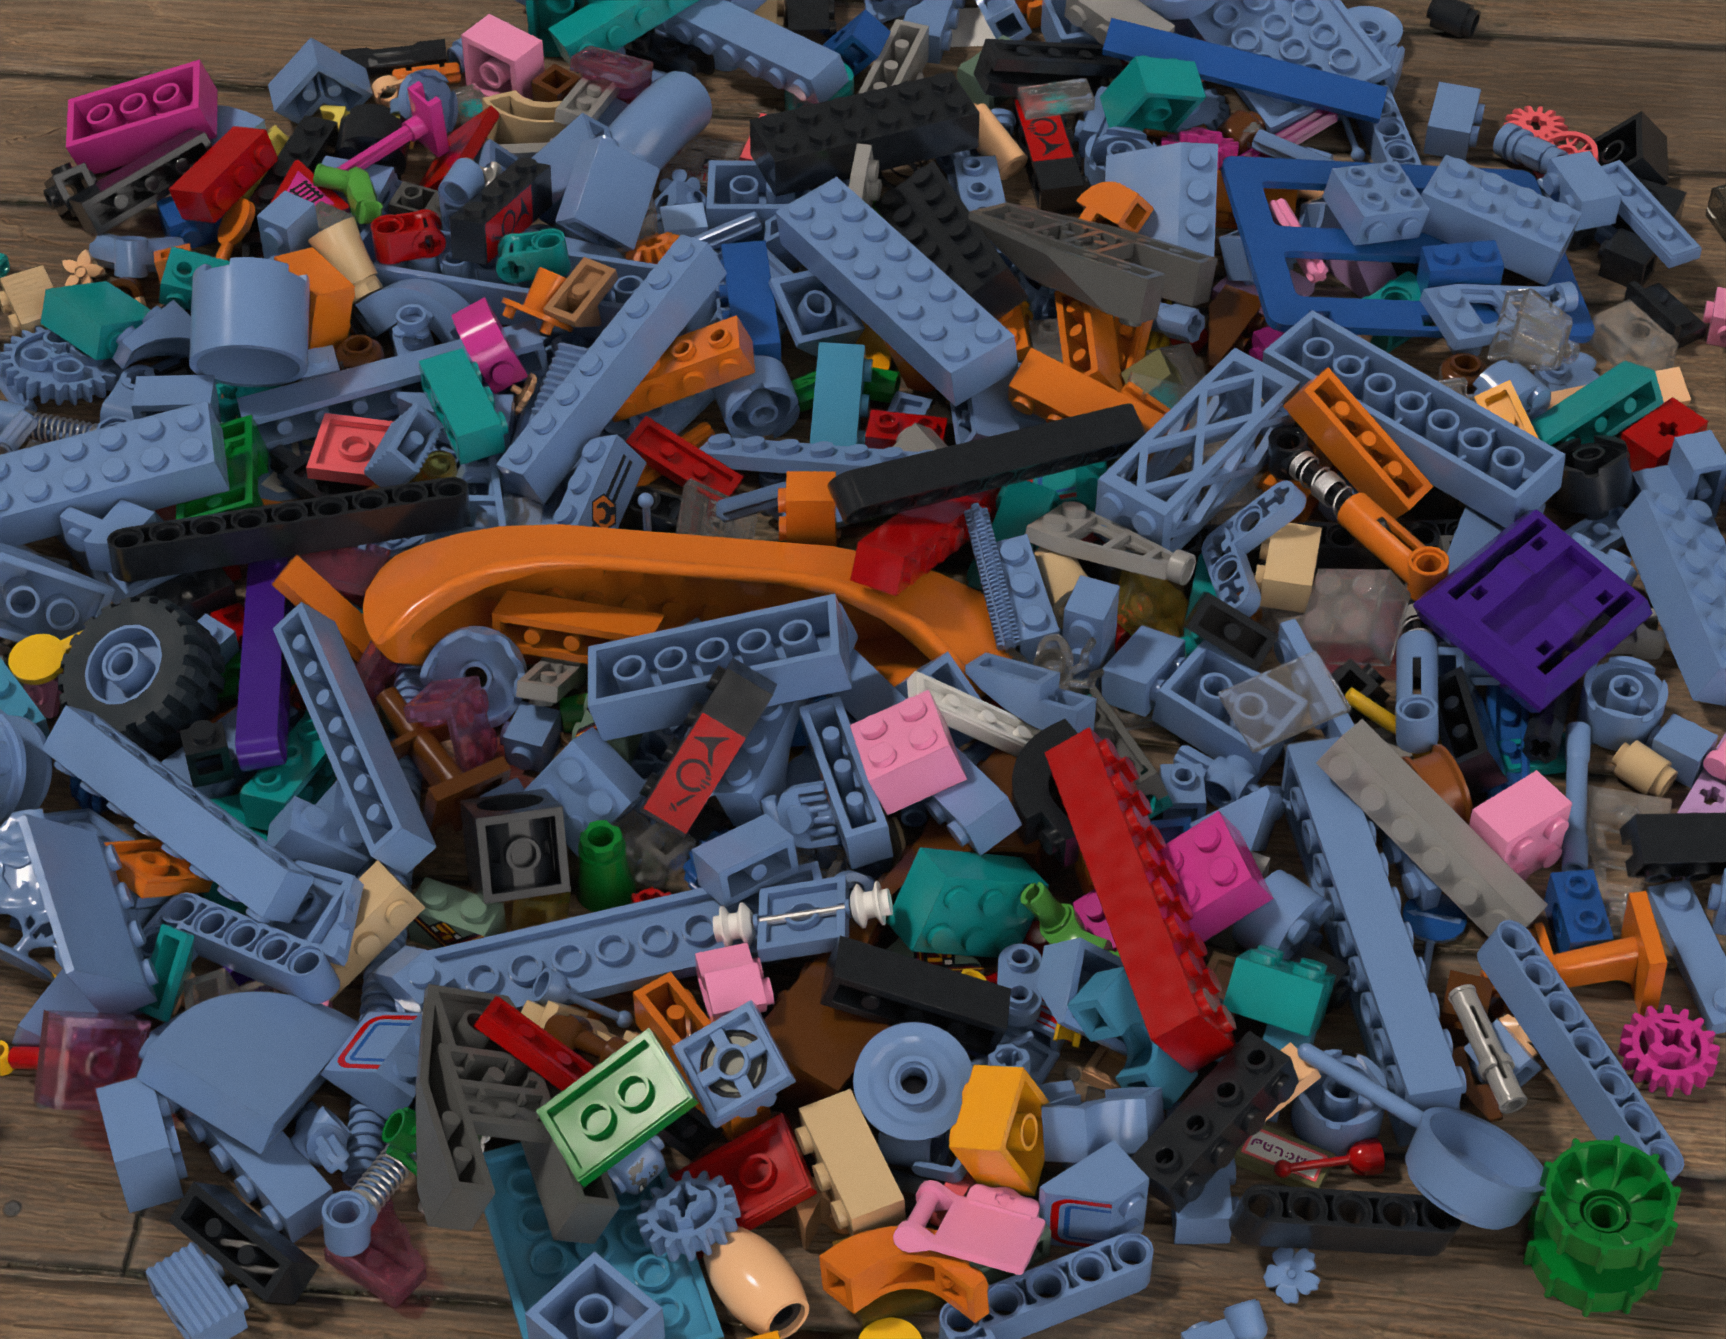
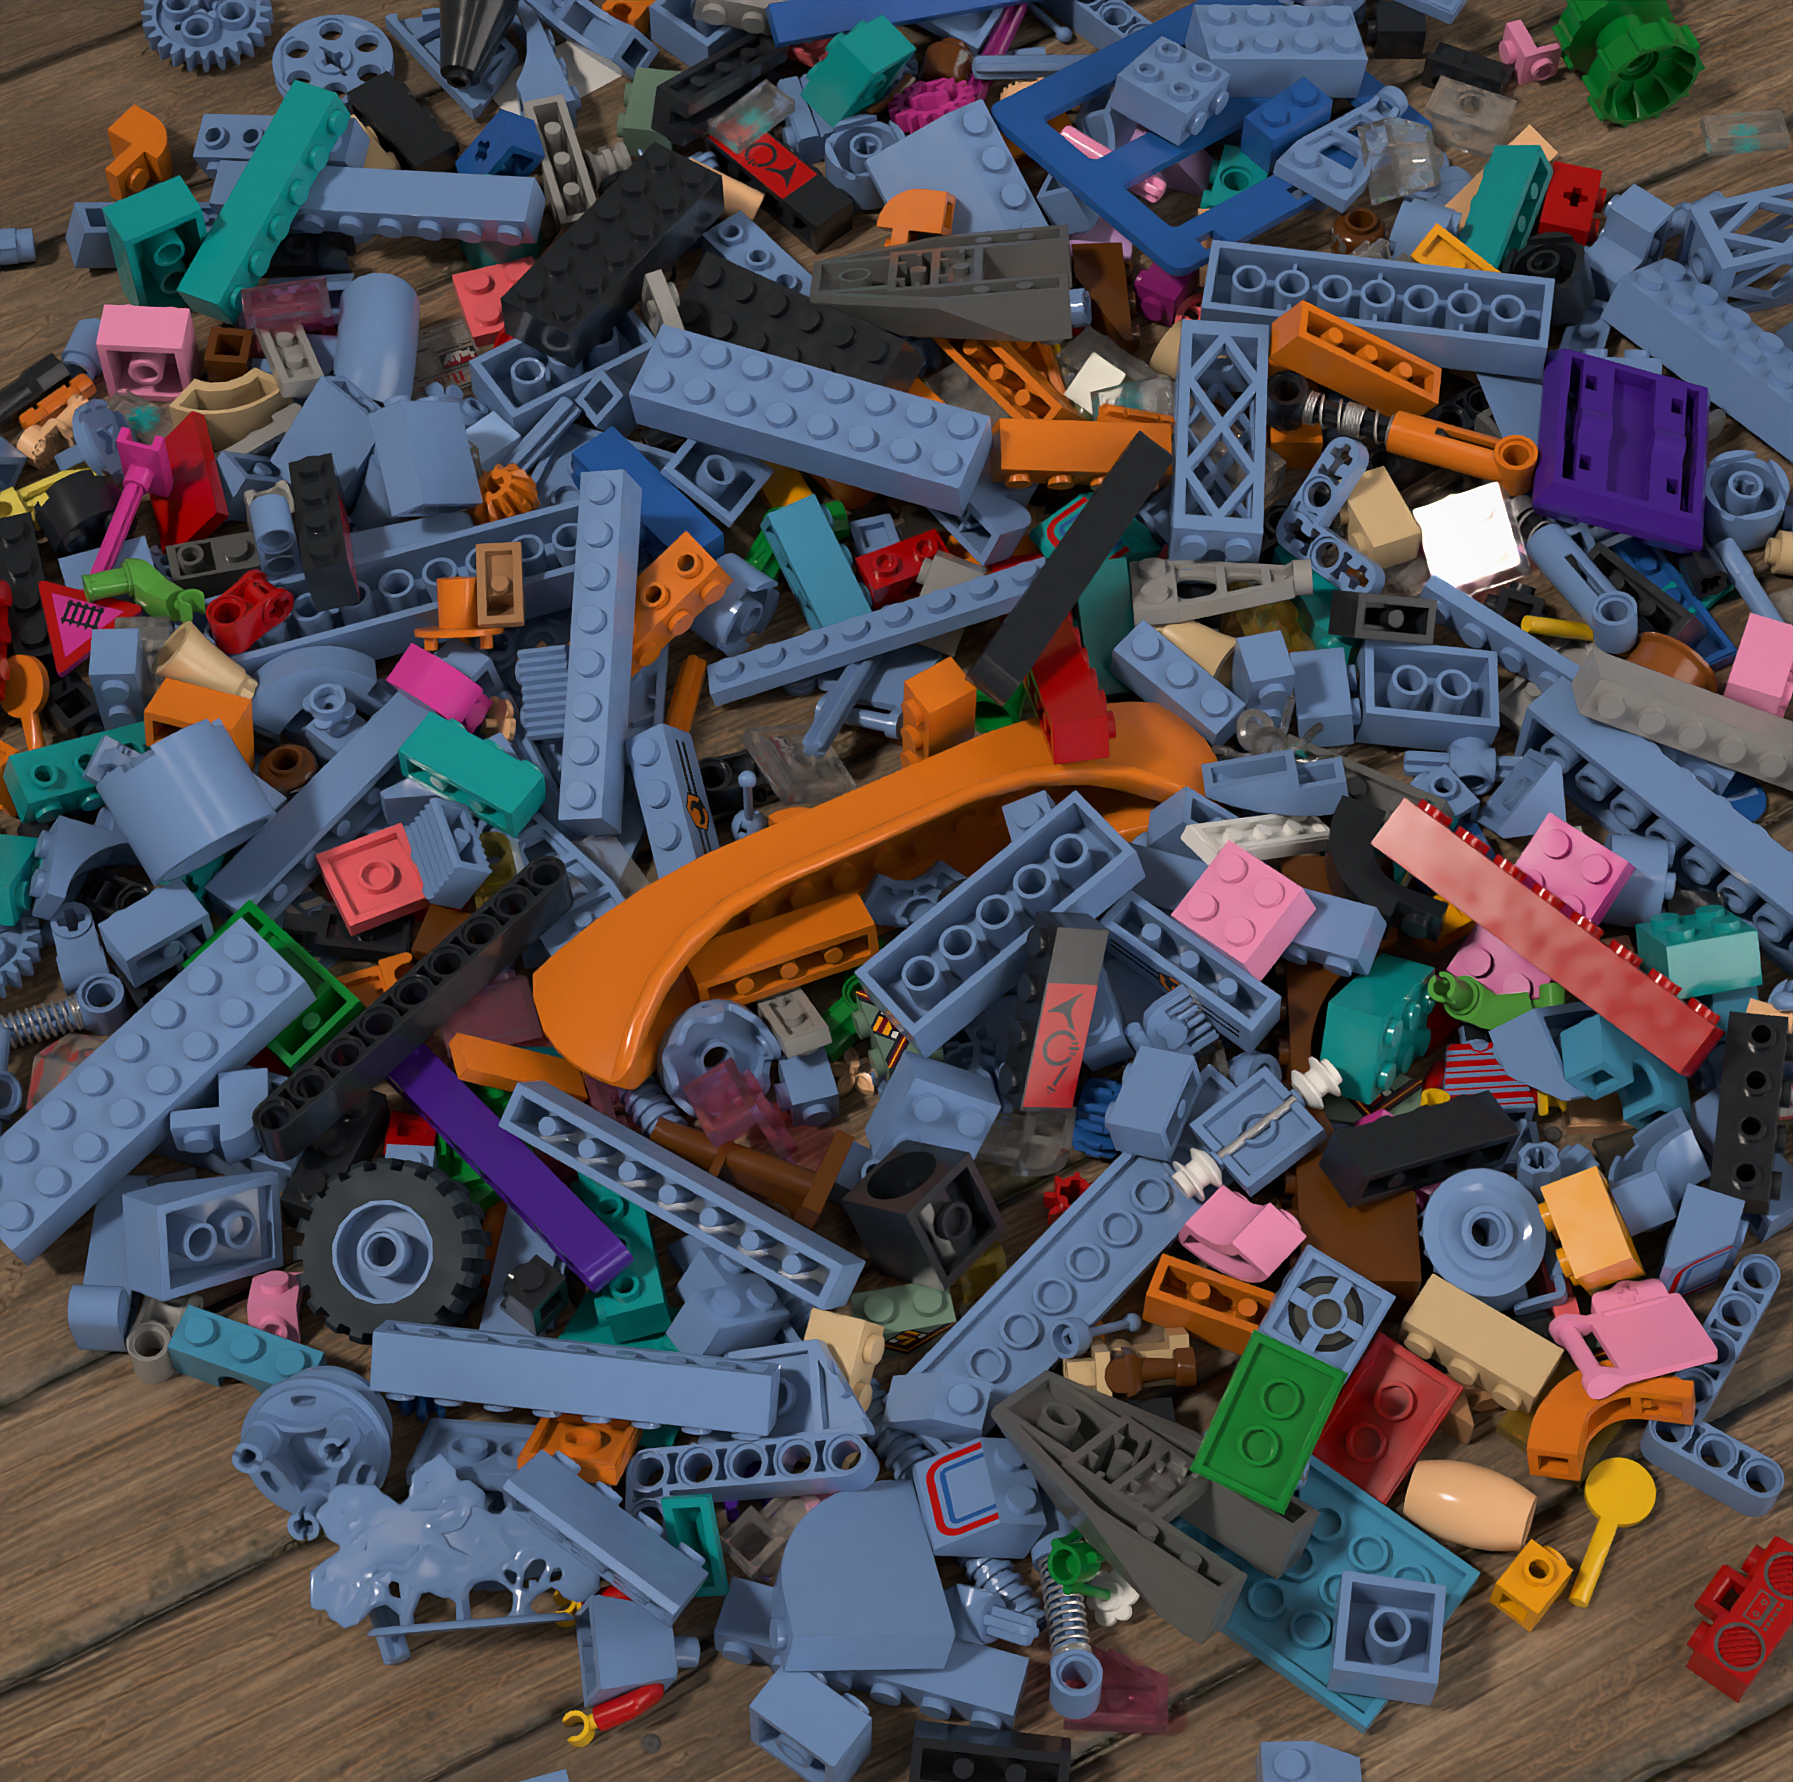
camera: 35 degrees left, 10 degrees up
(38, 658) = (262, 1289): yellow piece -> none
(84, 1054) = (702, 1678): clear pink brick -> none
(531, 251) = (407, 566): teal piece -> none
(531, 1044) = (1135, 1406): red tile -> none
(603, 868) = (1005, 1178): green plant -> none
(680, 459) = (709, 710): red plate -> none
(688, 1216) = (1363, 1499): medium blue gear -> none
(992, 577) = (1146, 683): medium blue axle -> none
(1022, 981) = (1468, 1074): medium blue plate -> none
(1284, 701) = (1484, 663): clear piece -> none

